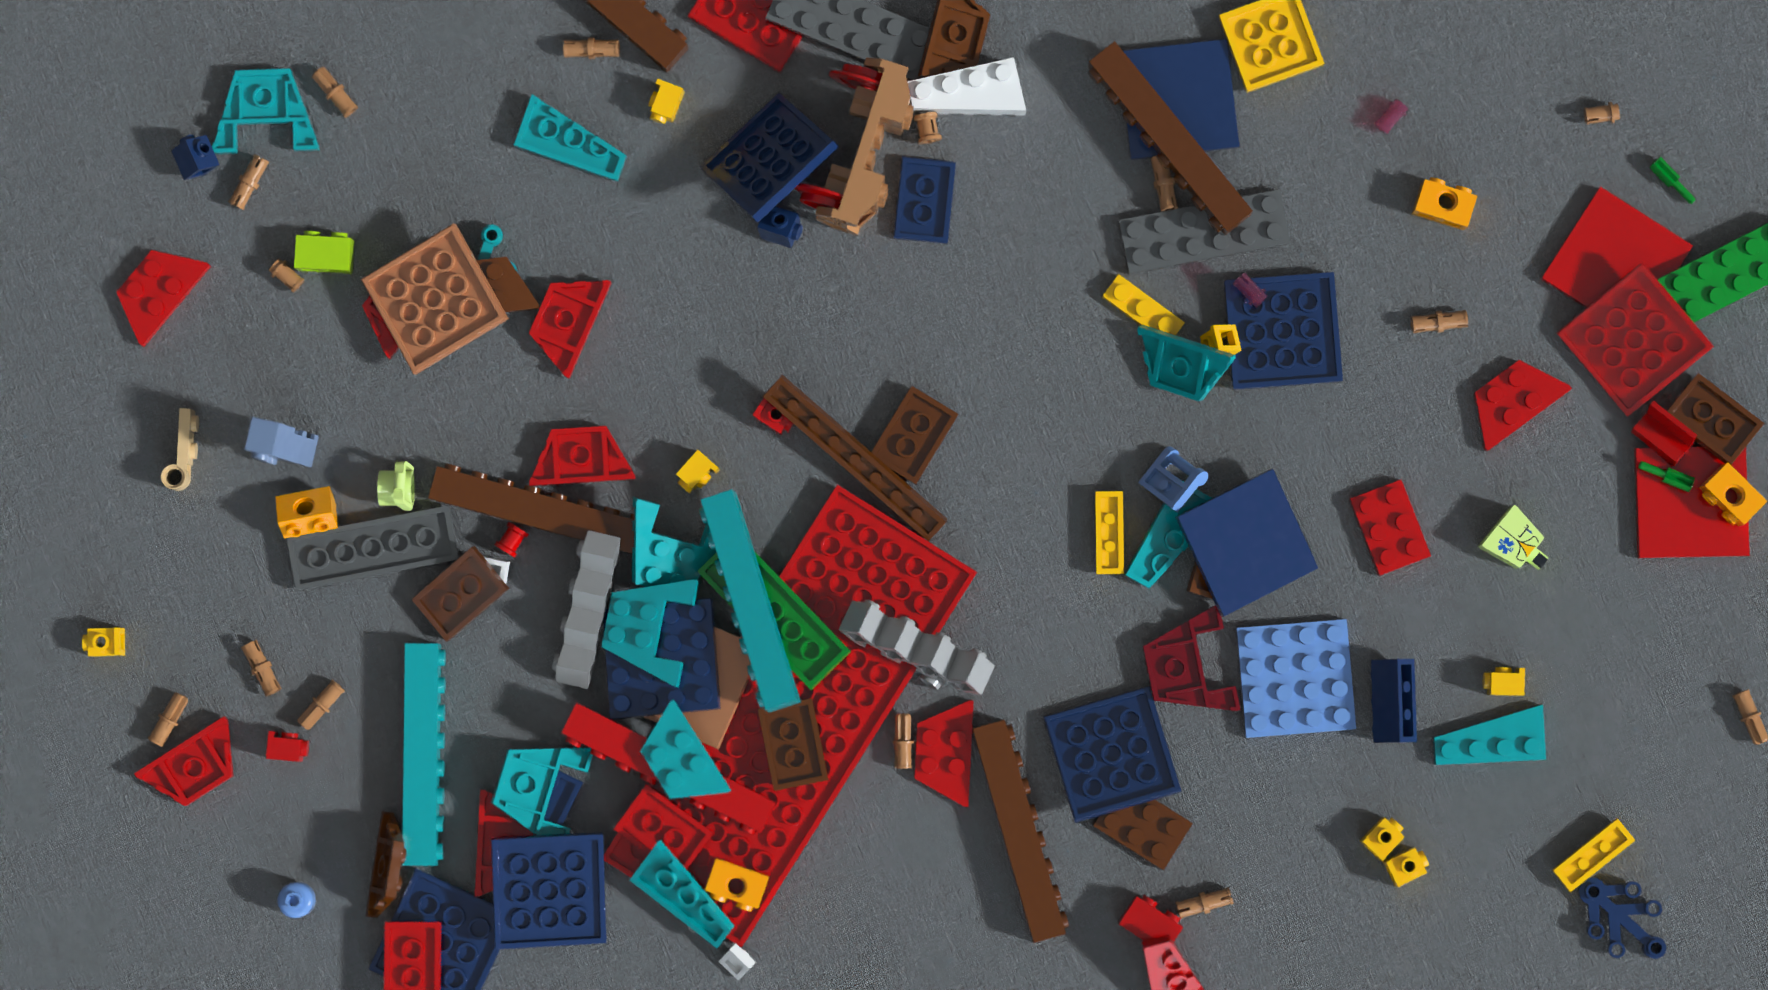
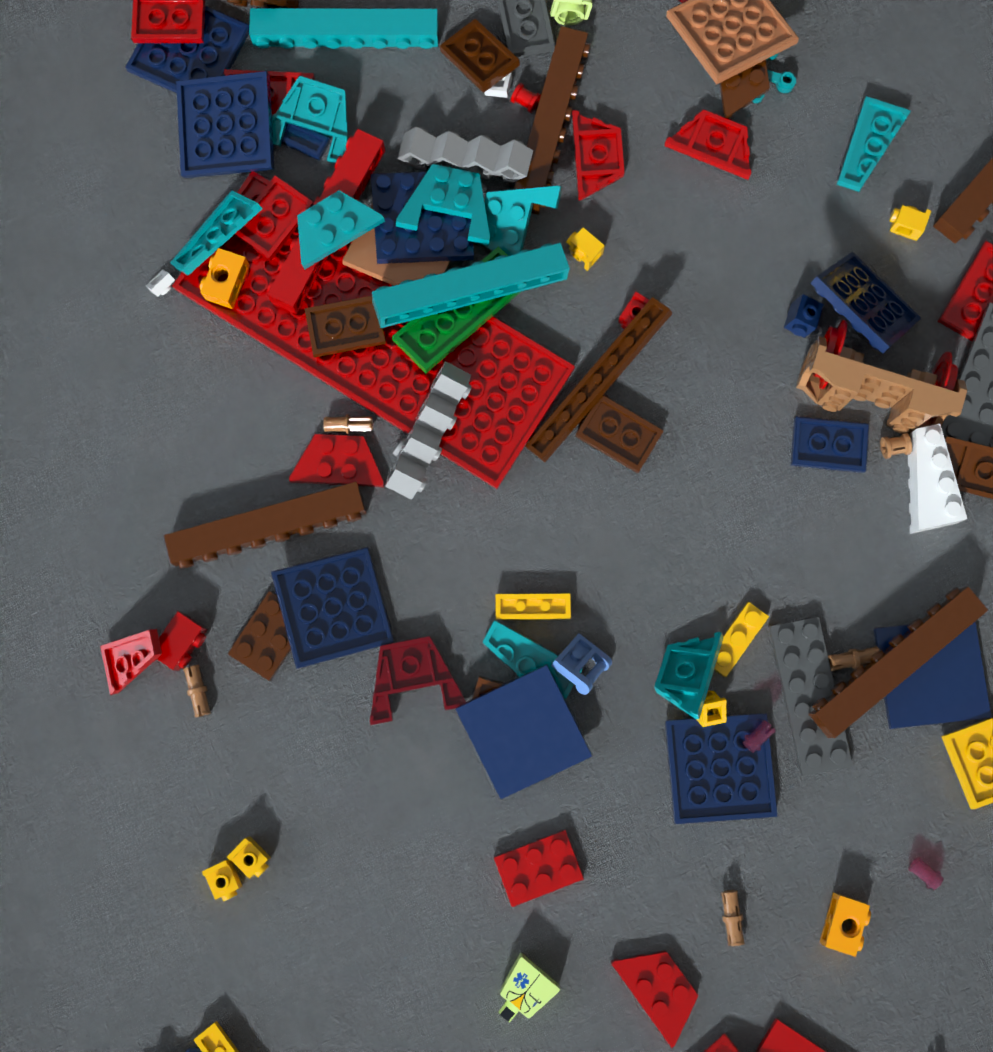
camera: 90 degrees right, 5 degrees down
(591, 48) = (952, 161): medium nougat pin -> none
(1296, 678) = (399, 778): medium blue plate -> none
(1393, 700) = (375, 869): dark blue brick -> none
(1502, 739) = (339, 975): teal wing -> none
(1504, 681) = (392, 977): yellow brick -> none

